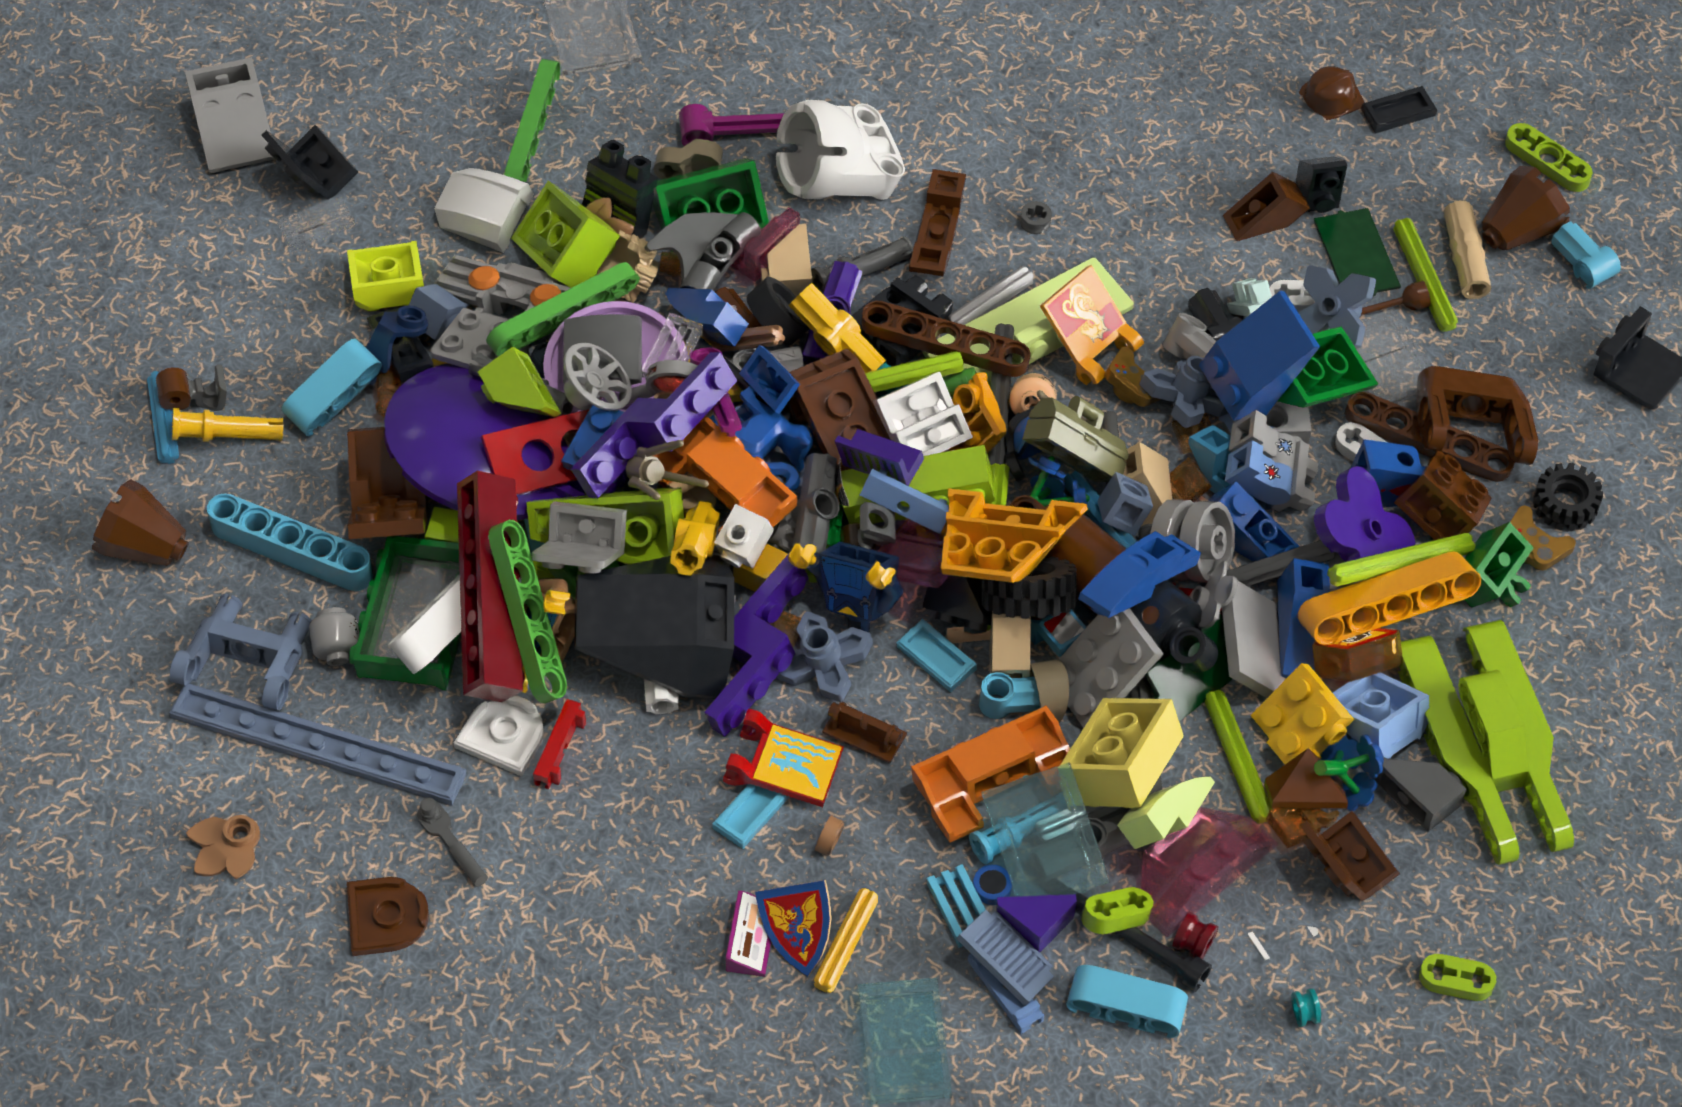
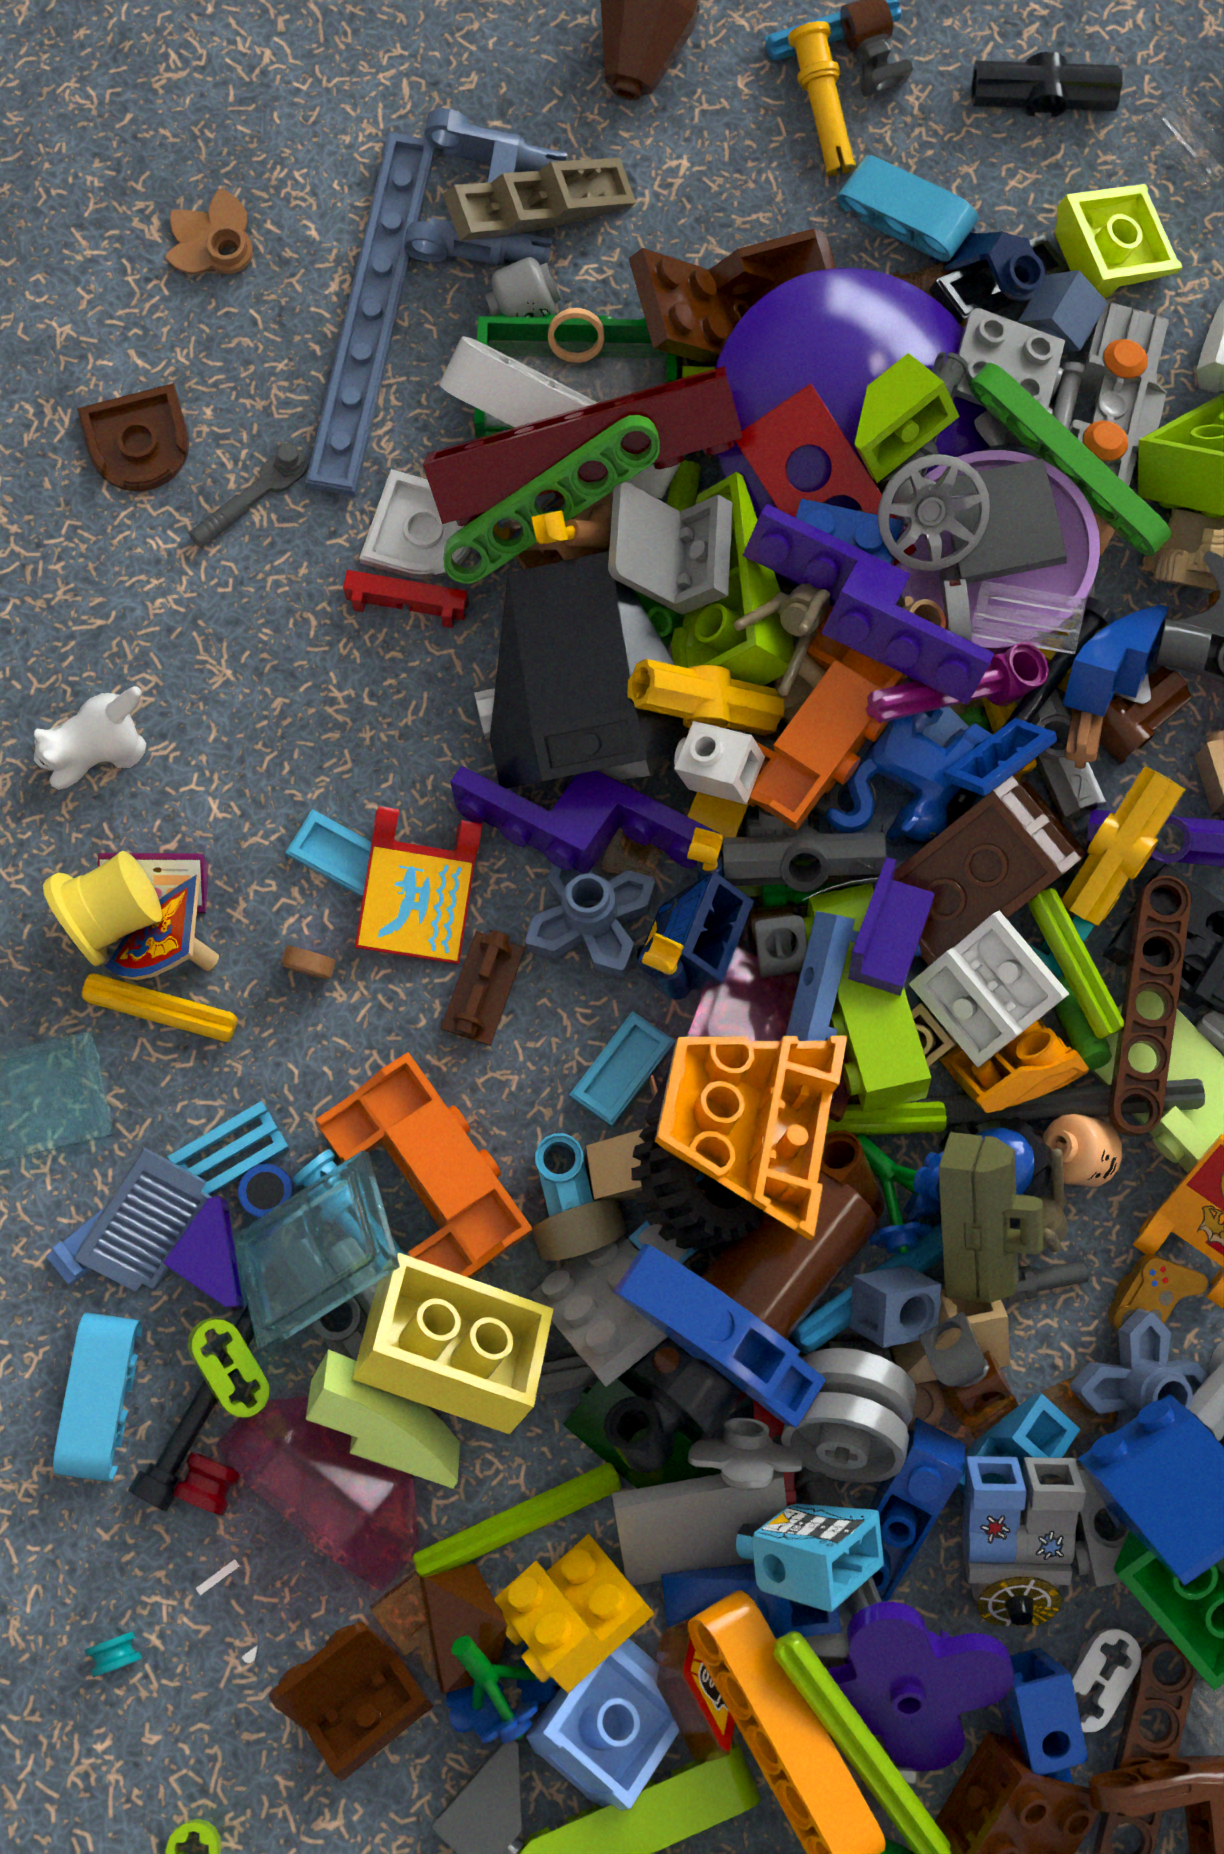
camera: 80 degrees right, 20 degrees up
(250, 295) = (1046, 85): none -> black piece
(265, 609) = (539, 199): none -> dark tan slope
(278, 530) = (661, 193): medium azure beam -> none
(370, 599) = (571, 356): none -> light nougat piece
(626, 953) = (95, 735): none -> white animal
(770, 307) = (1143, 739): black tyre -> none
(770, 949) = (103, 904): none -> light yellow piece
(1173, 467) = (972, 1374): none -> dark grey leg
(1278, 566) = (814, 1552): none -> medium azure torso
(1316, 478) = (1019, 1602): none -> piece

